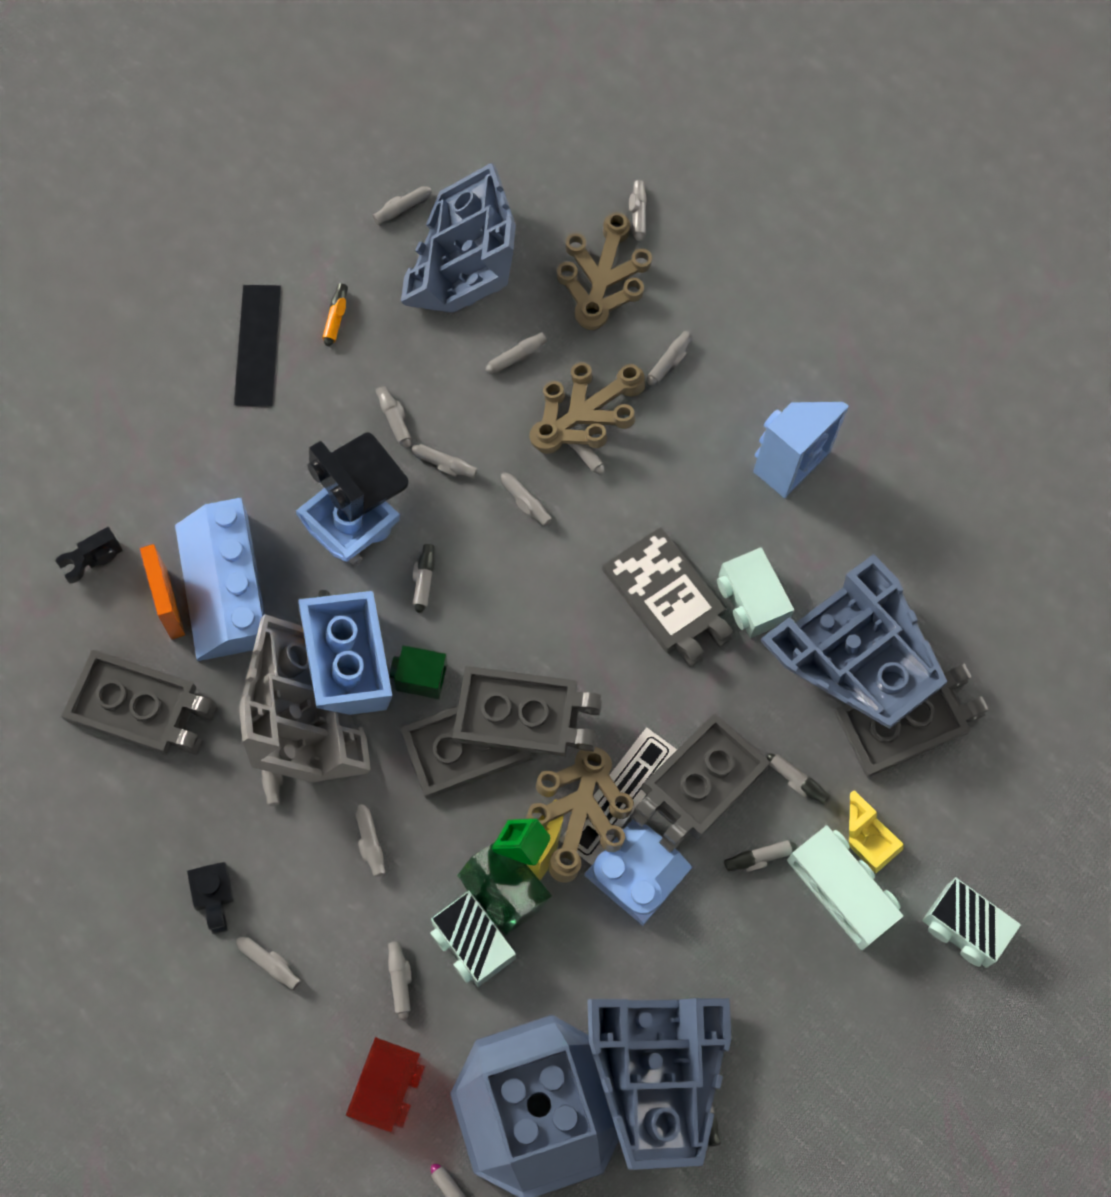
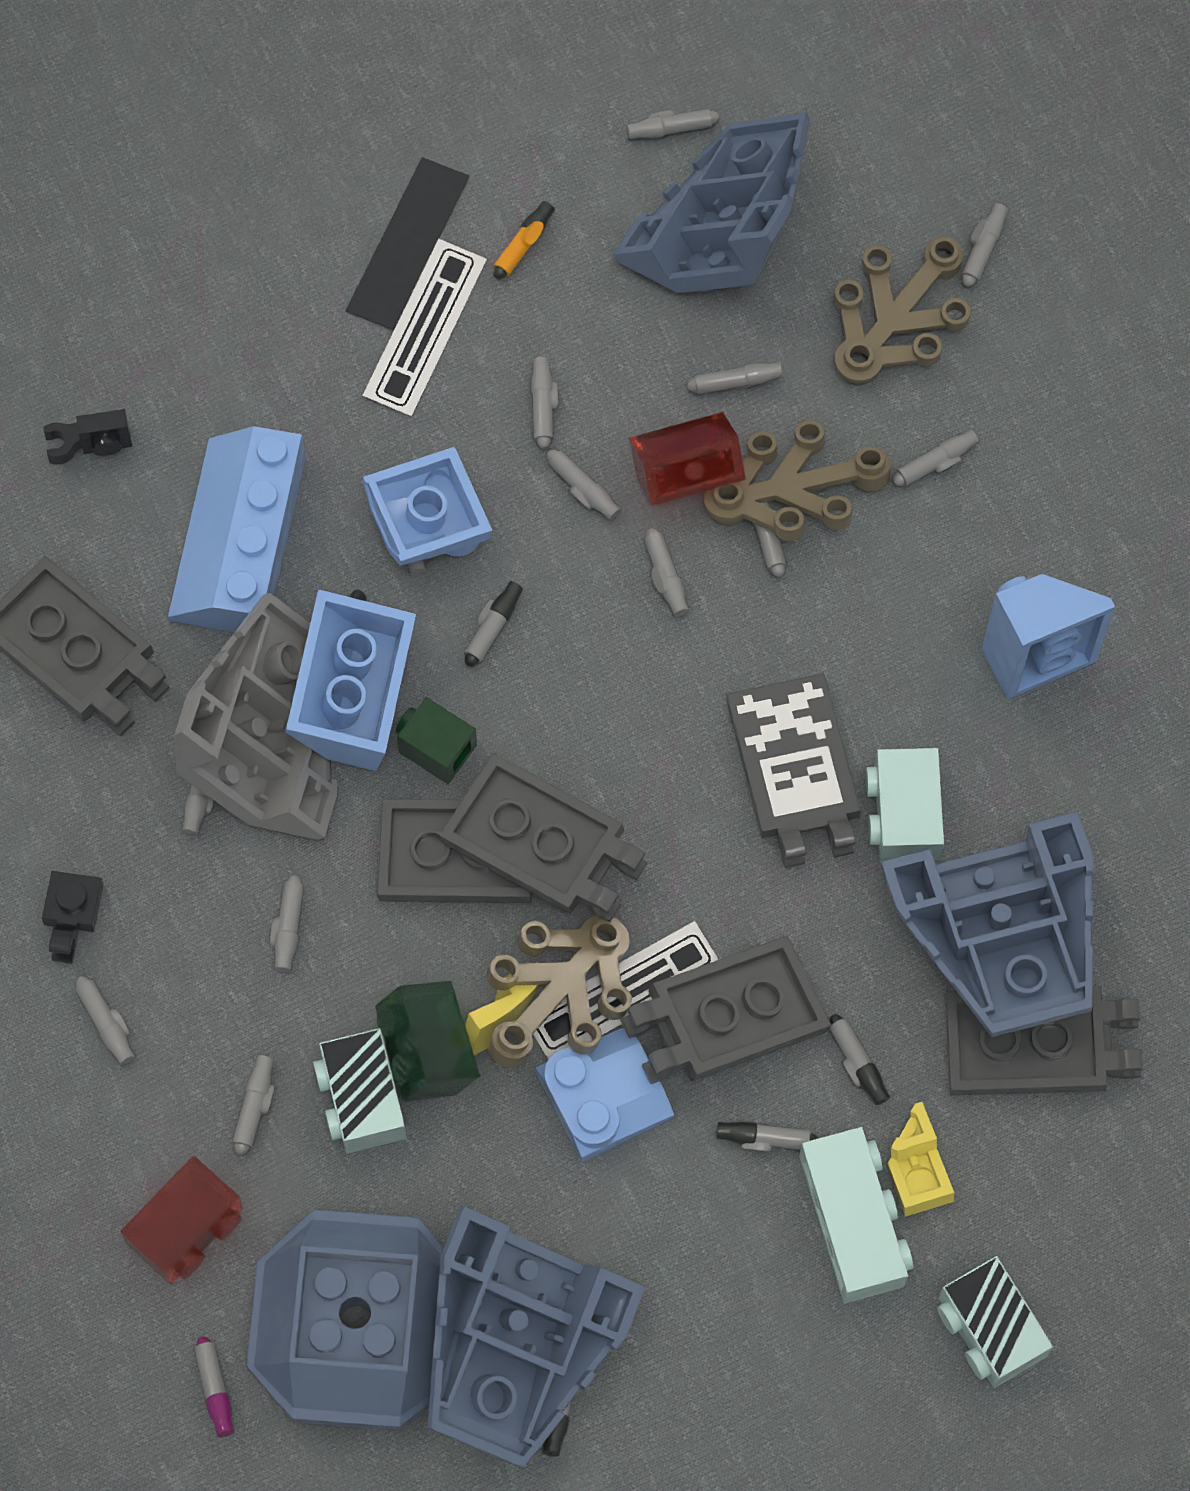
camera: 25 degrees right, 0 degrees up
(162, 591) = (157, 517): orange tile -> none
(292, 396) = (424, 327): none -> white sticker
(357, 474) = (457, 459): black bracket -> none
(509, 417) = (687, 458): none -> clear red brick
(522, 840) = (470, 993): green slope -> none

